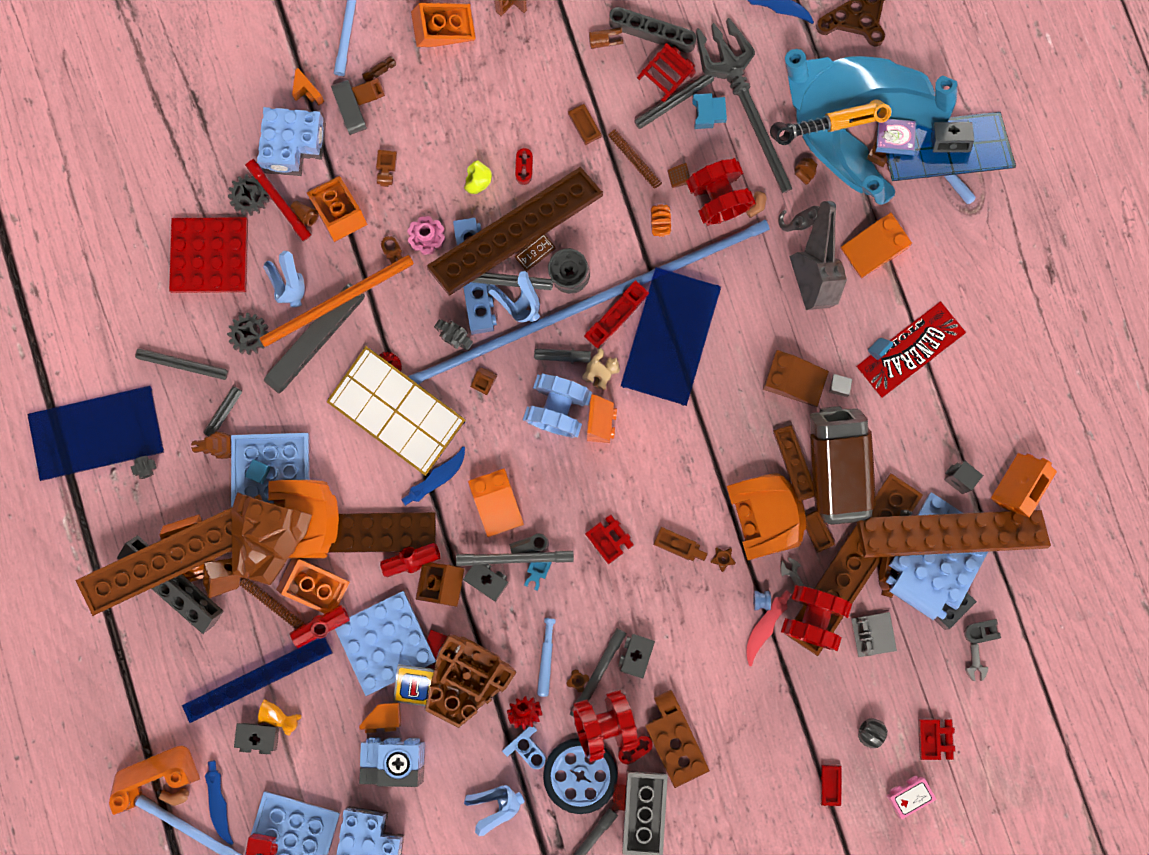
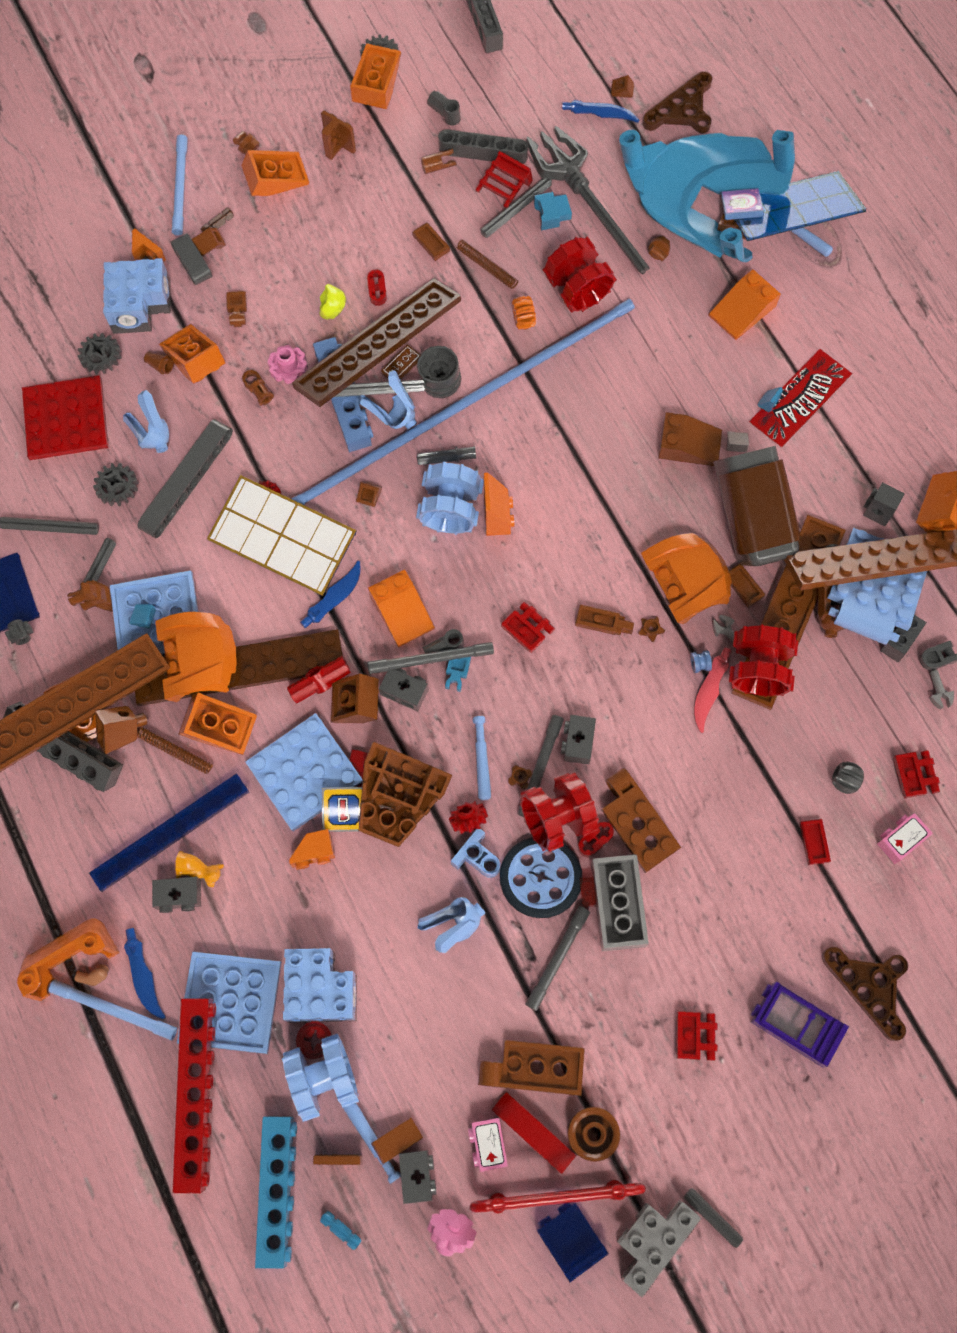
camera: 10 degrees left, 10 degrees down
(259, 175) = (153, 374): red piece -> none
(264, 537) = (157, 672): dark orange wedge -> none
(308, 631) = (218, 772): red piece -> none
(336, 301) = (203, 435): orange axle -> none
(392, 762) = (331, 890): piece -> none
(453, 334) = (330, 449): dark grey gear -> none
(600, 372) = (486, 463): tan animal -> none
(617, 315) = (497, 407): red slope -> none
(670, 336) = (554, 421): clear blue piece -> none
(678, 175) = (533, 272): dark orange slope -> none
(760, 199) = (620, 287): nougat arm -> none
(794, 462) = (706, 520): dark orange tile -> none
(816, 269) = (689, 331): flat silver slope -> none
(832, 121) = (676, 196): piece -> none
(874, 634) = (825, 678): light grey hinge -> none
(952, 137) = (798, 193): dark grey brick -> none

